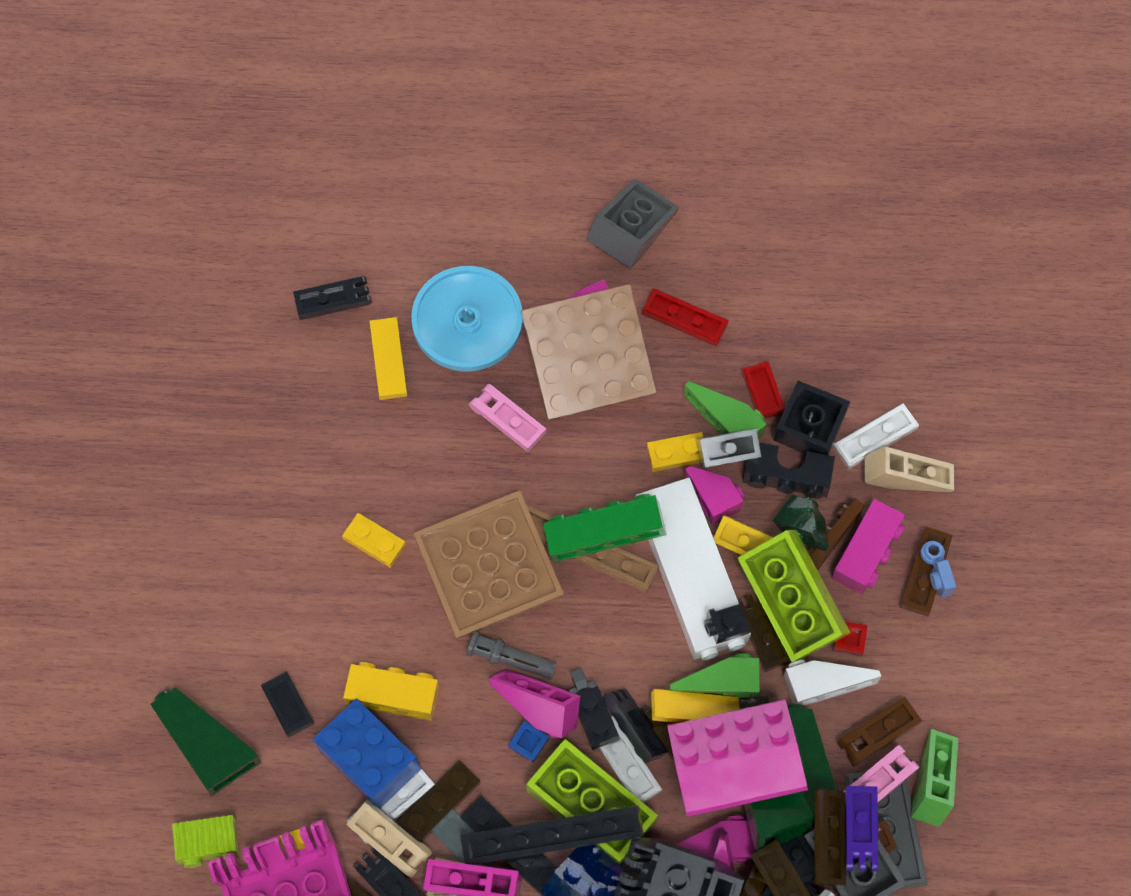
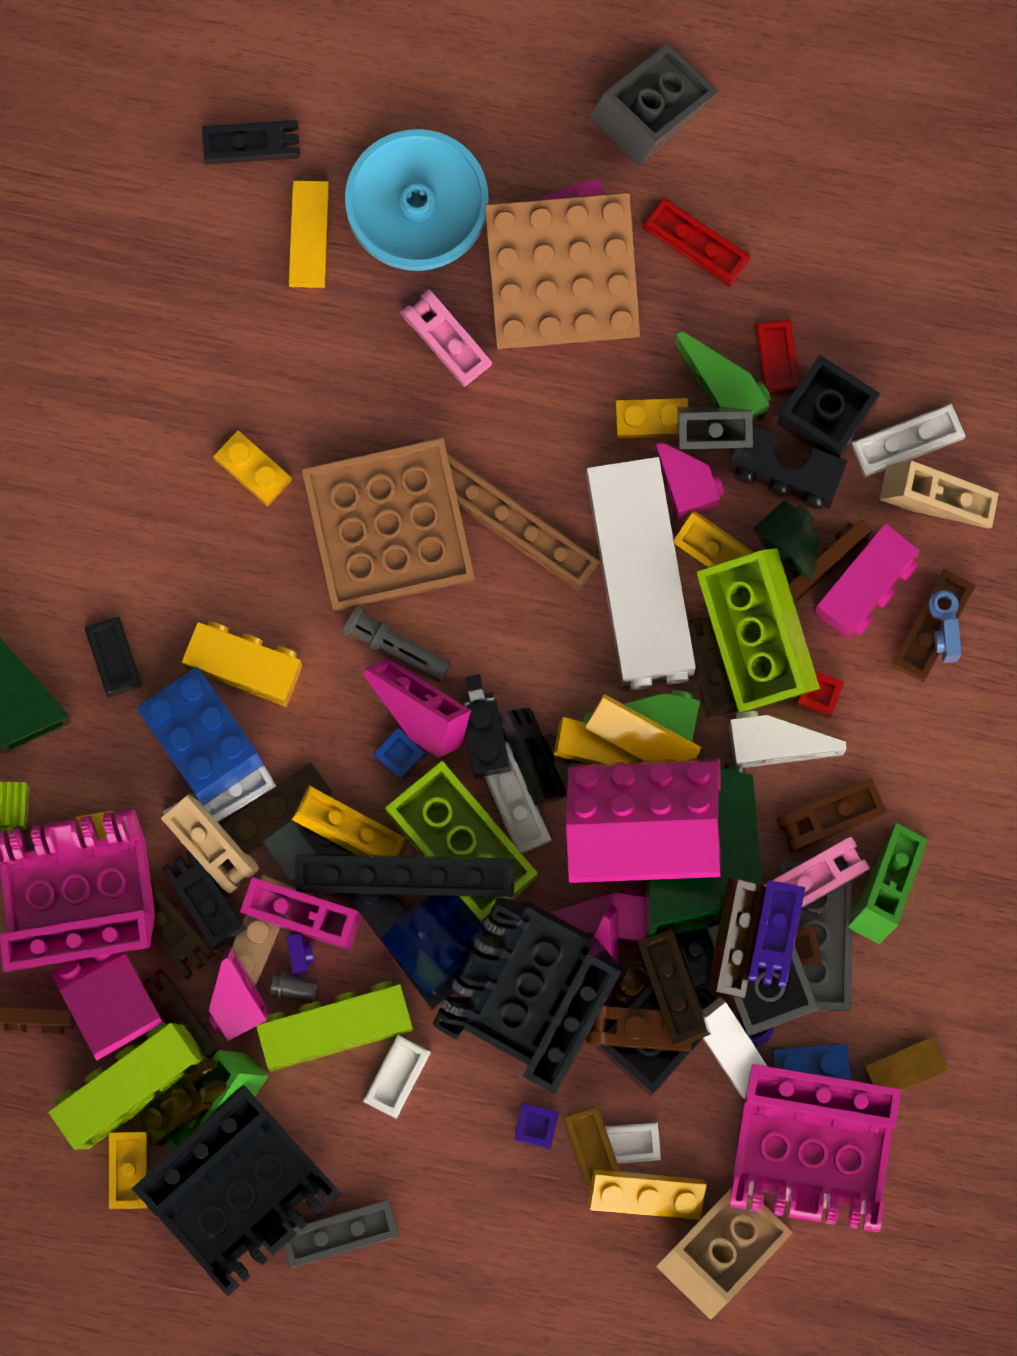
camera: 10 degrees right, 10 degrees up
(495, 805) = (346, 826): none -> yellow tile
(604, 528) = (539, 505): green brick -> none
(716, 691) = (638, 733): none -> yellow tile
(726, 624) = (667, 652): black bracket -> none

